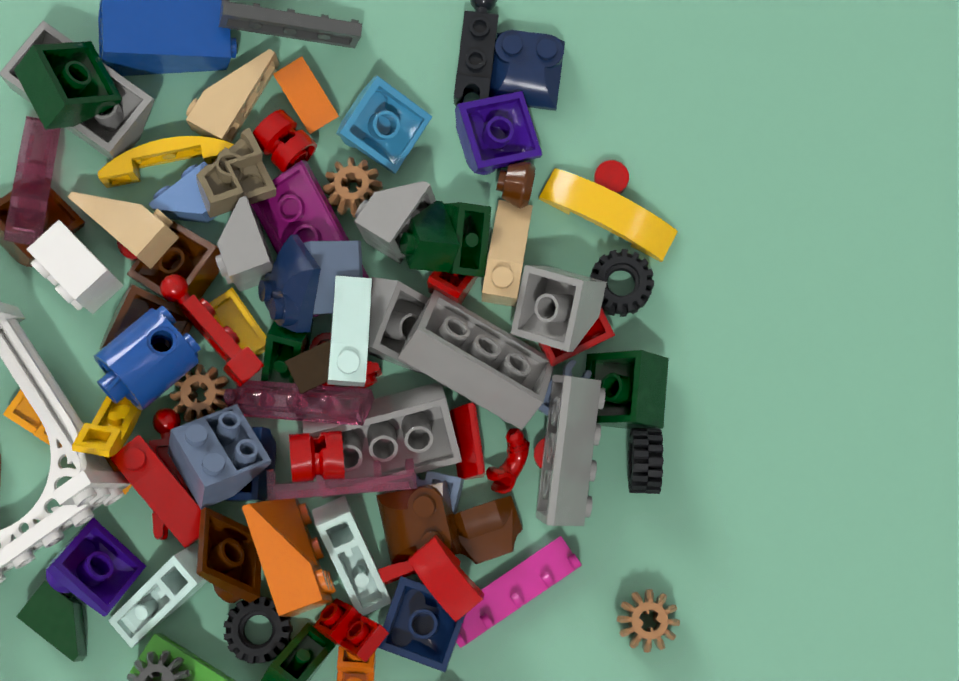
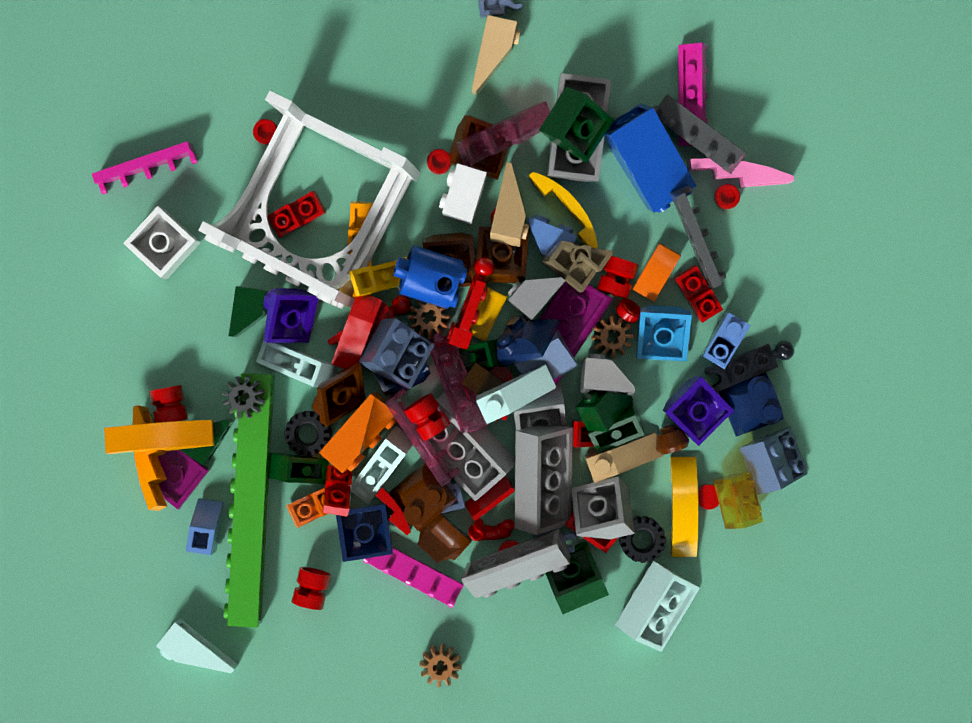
camera: 55 degrees right, 10 degrees up
(22, 282) = (438, 161): none -> red tile
(230, 100) = (620, 224): tan slope -> none
(332, 151) = (628, 310): none -> red tile
(360, 62) = (698, 293): none -> red slope
(430, 53) = (725, 339): none -> medium blue slope
(445, 579) = (396, 533): red slope -> none
(609, 78) = (774, 461): none -> sand blue slope
(634, 142) = (738, 501): none -> clear yellow brick
(645, 460) = (536, 614): black tyre -> none
(713, 308) = (657, 606): none -> light aqua slope

